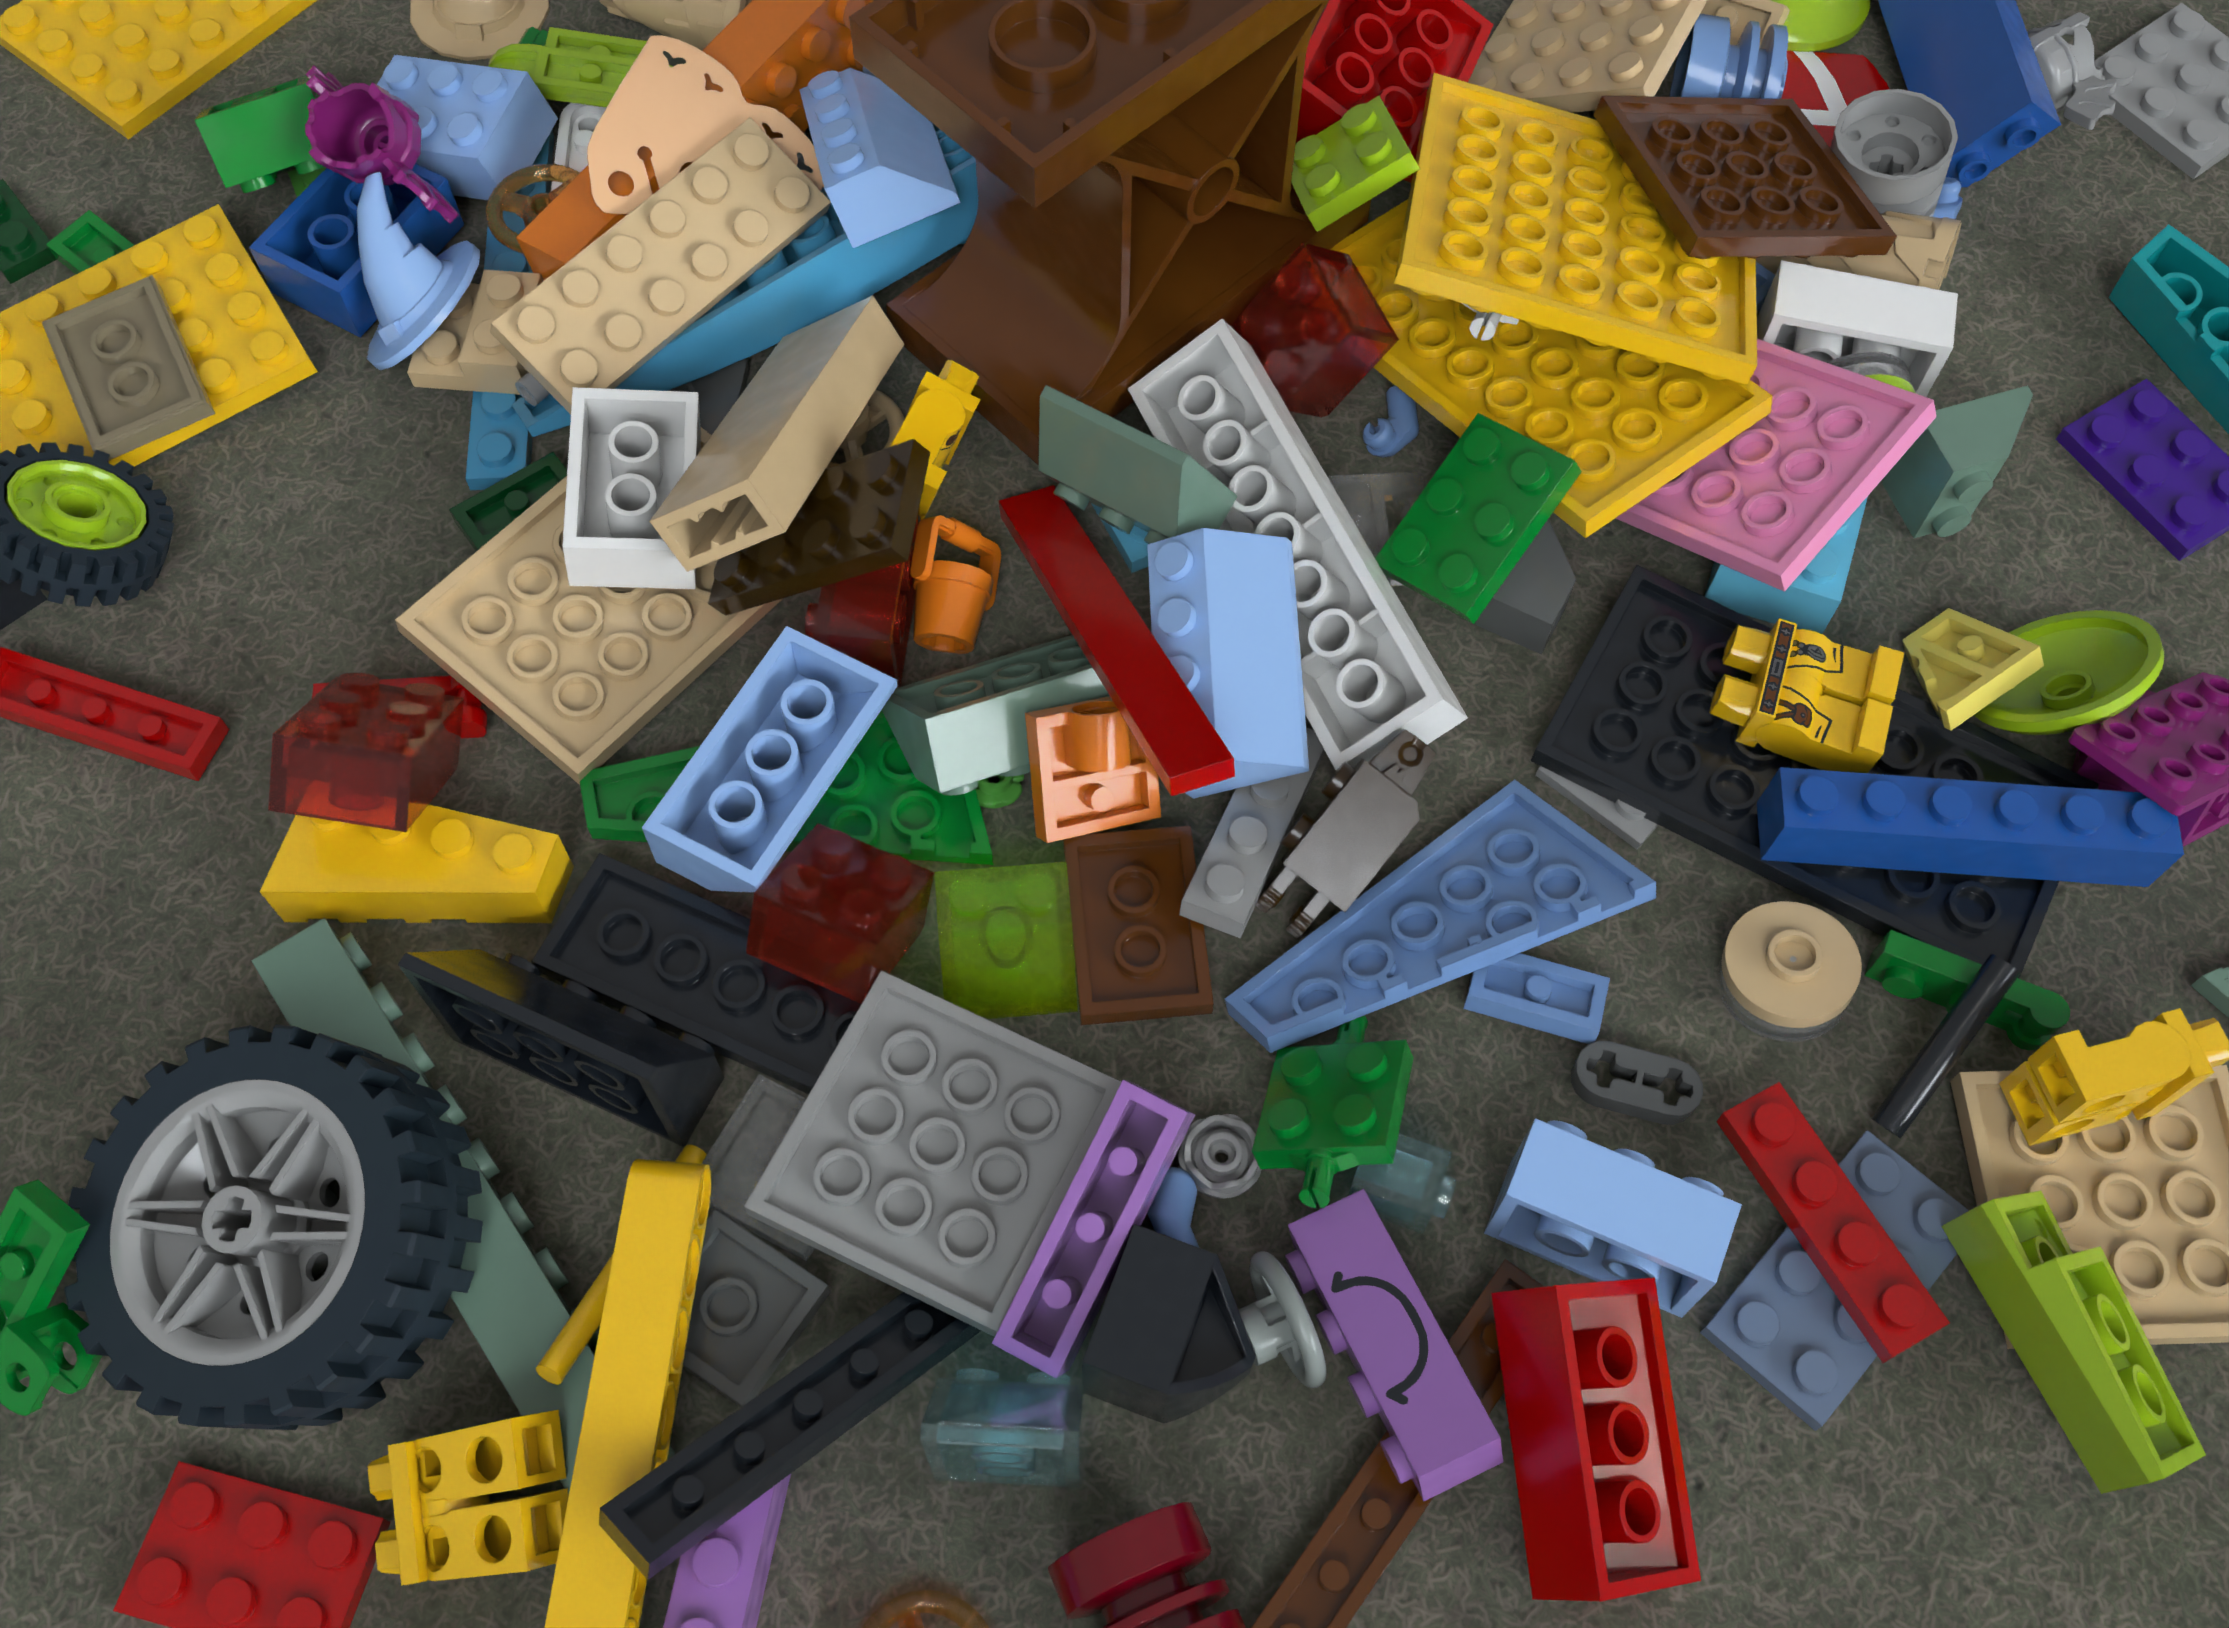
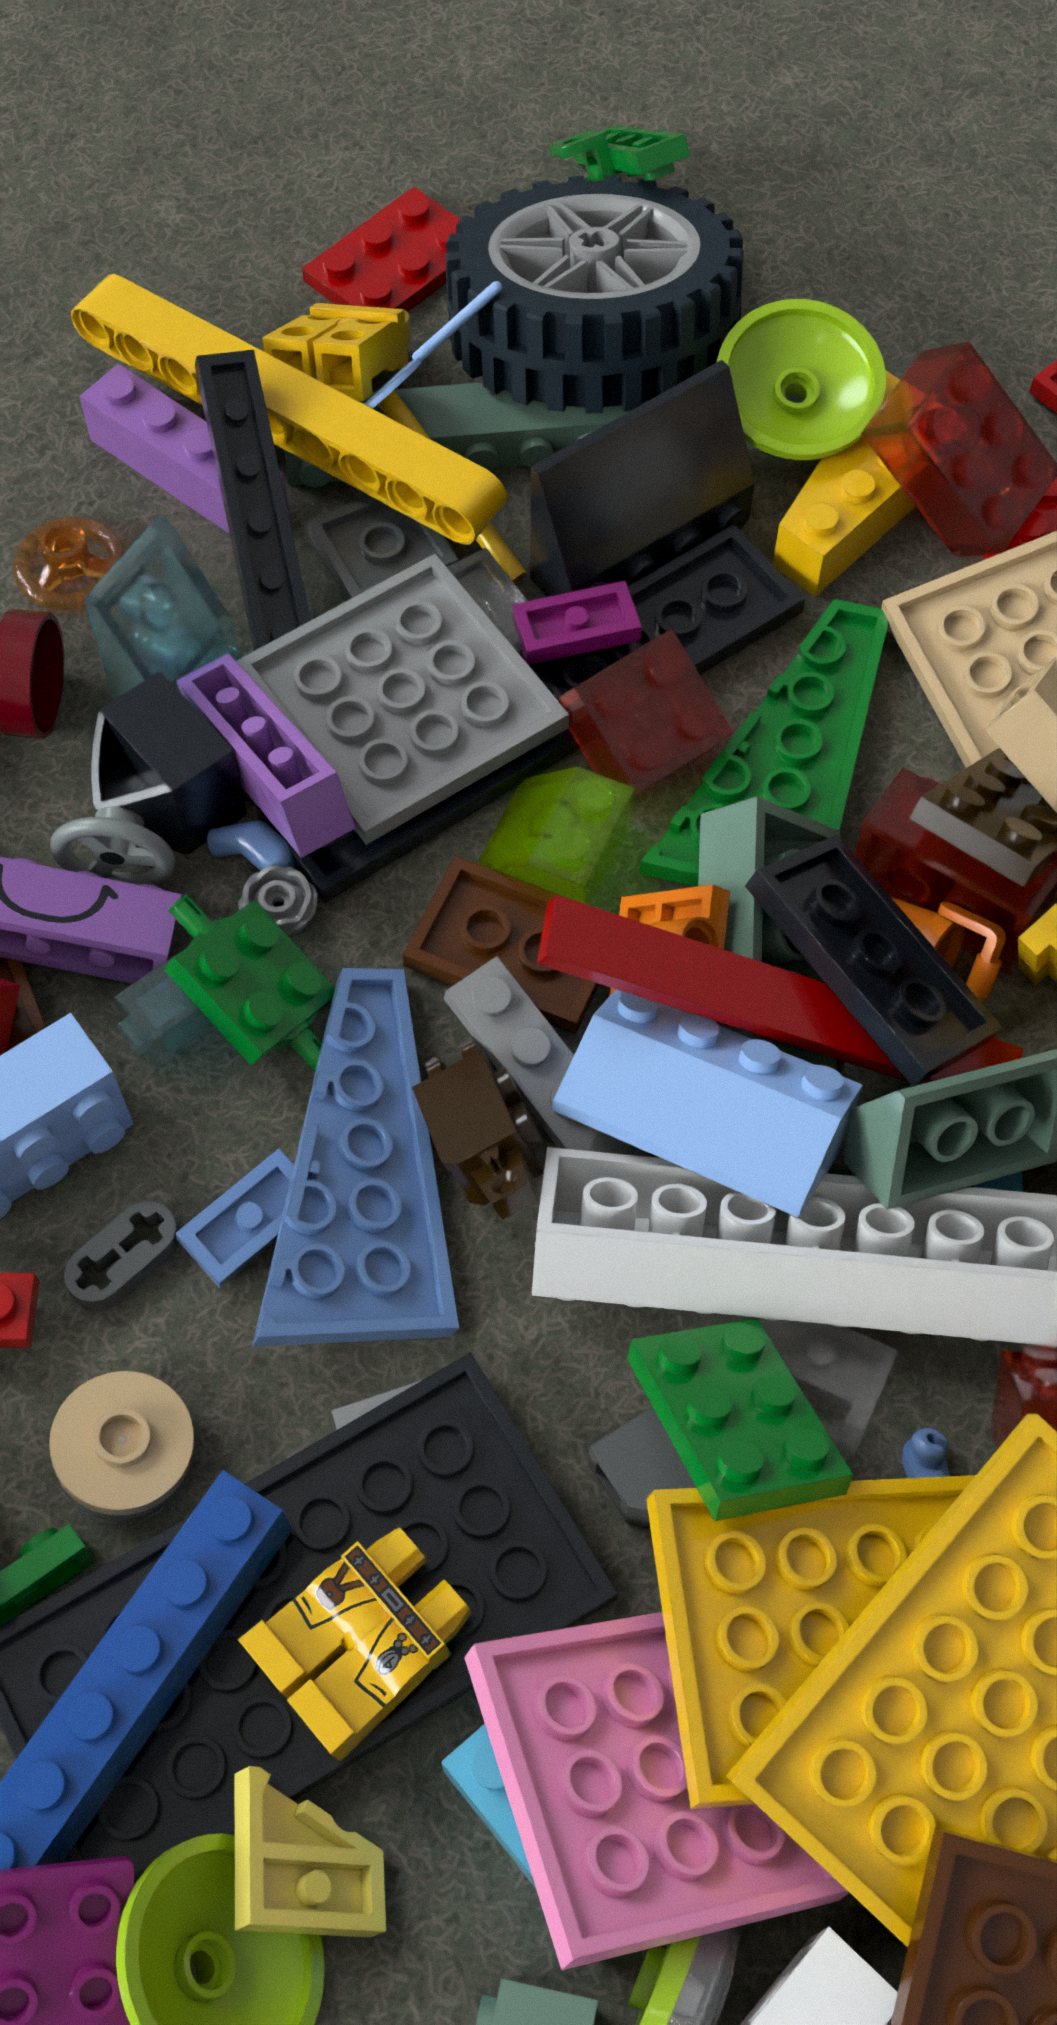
camera: 120 degrees right, 0 degrees up
(332, 902) = (809, 353): none -> lime dish
(525, 1365) = (435, 341): none -> light blue piece
(756, 1029) = (576, 622): none -> magenta plate
(766, 764) = (801, 701): light blue slope -> none
(1018, 589) = (873, 958): none -> black plate

